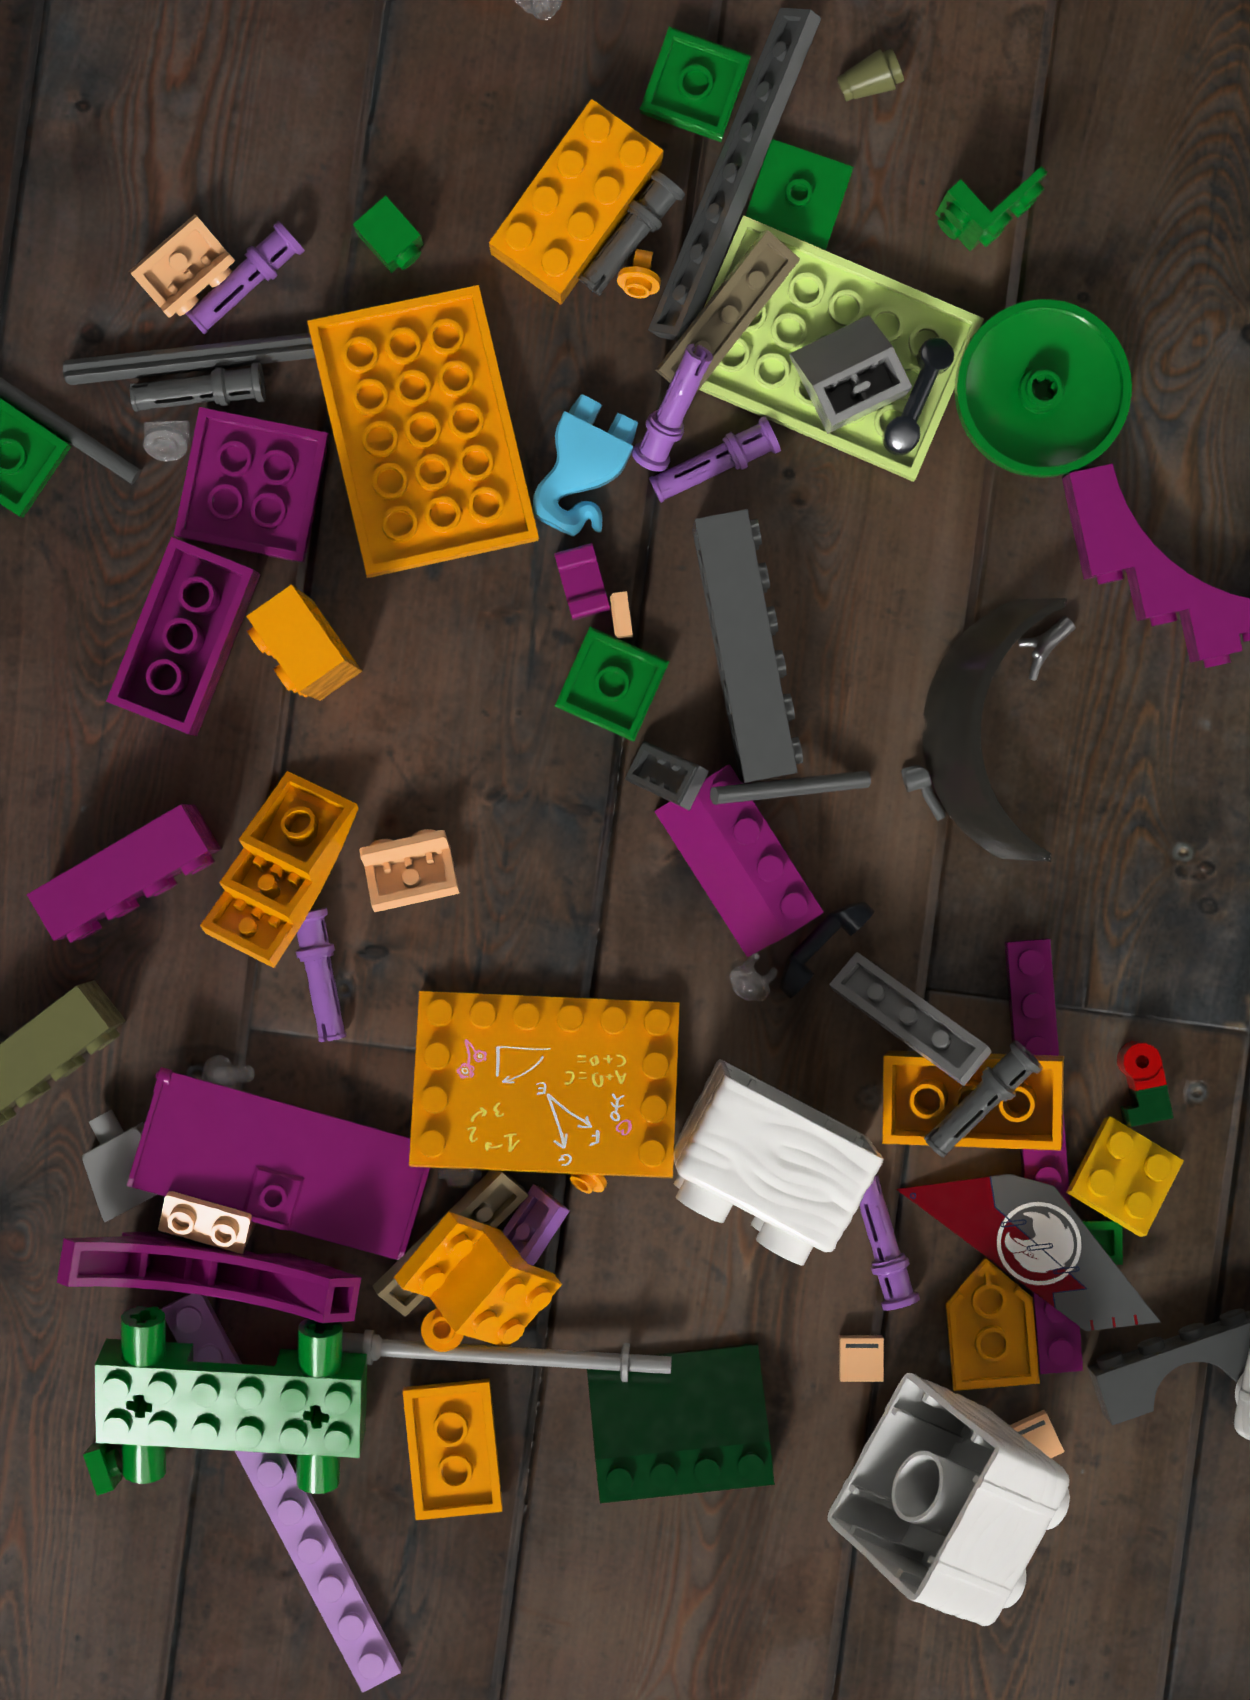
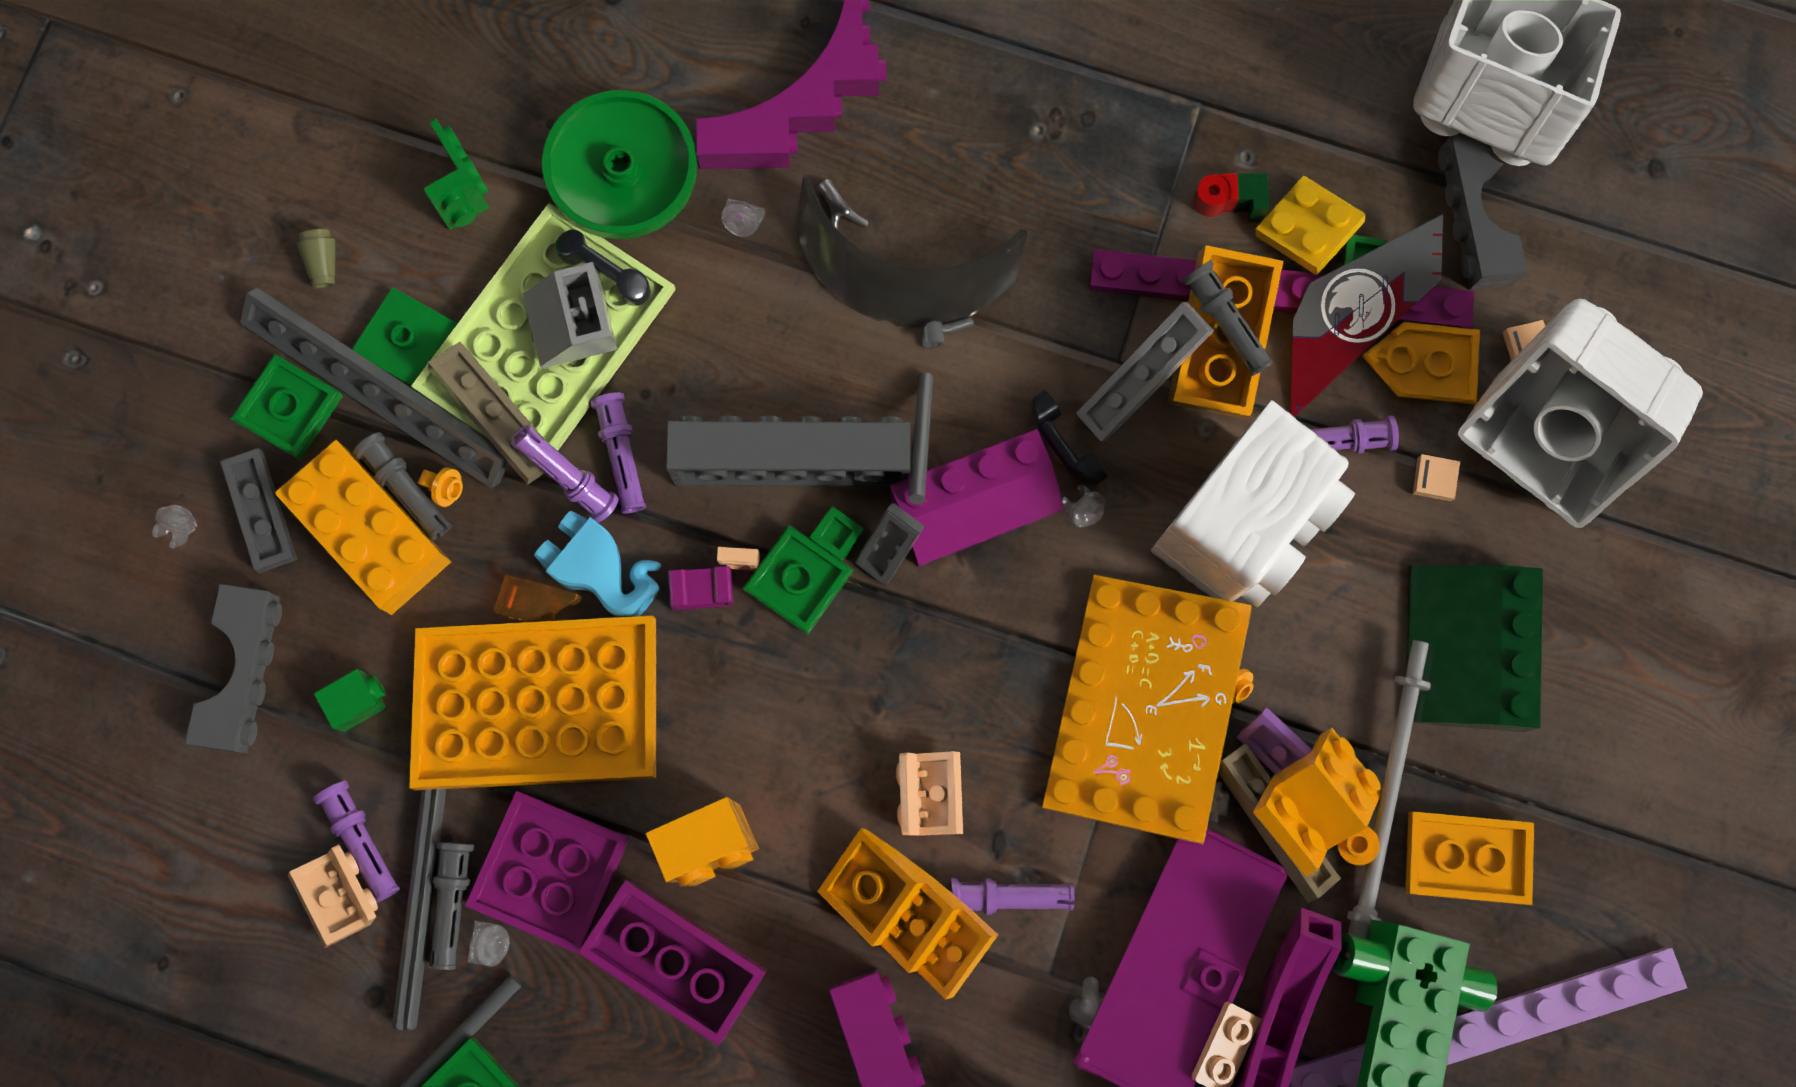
camera: 80 degrees left, 10 degrees down
(450, 104) = (229, 717): none -> dark grey arch
(533, 402) = (531, 600): none -> clear orange slope
(574, 83) = (258, 510): none -> dark grey plate
(669, 716) = (837, 533): none -> green plate
(1012, 538) = (741, 217): none -> clear plate

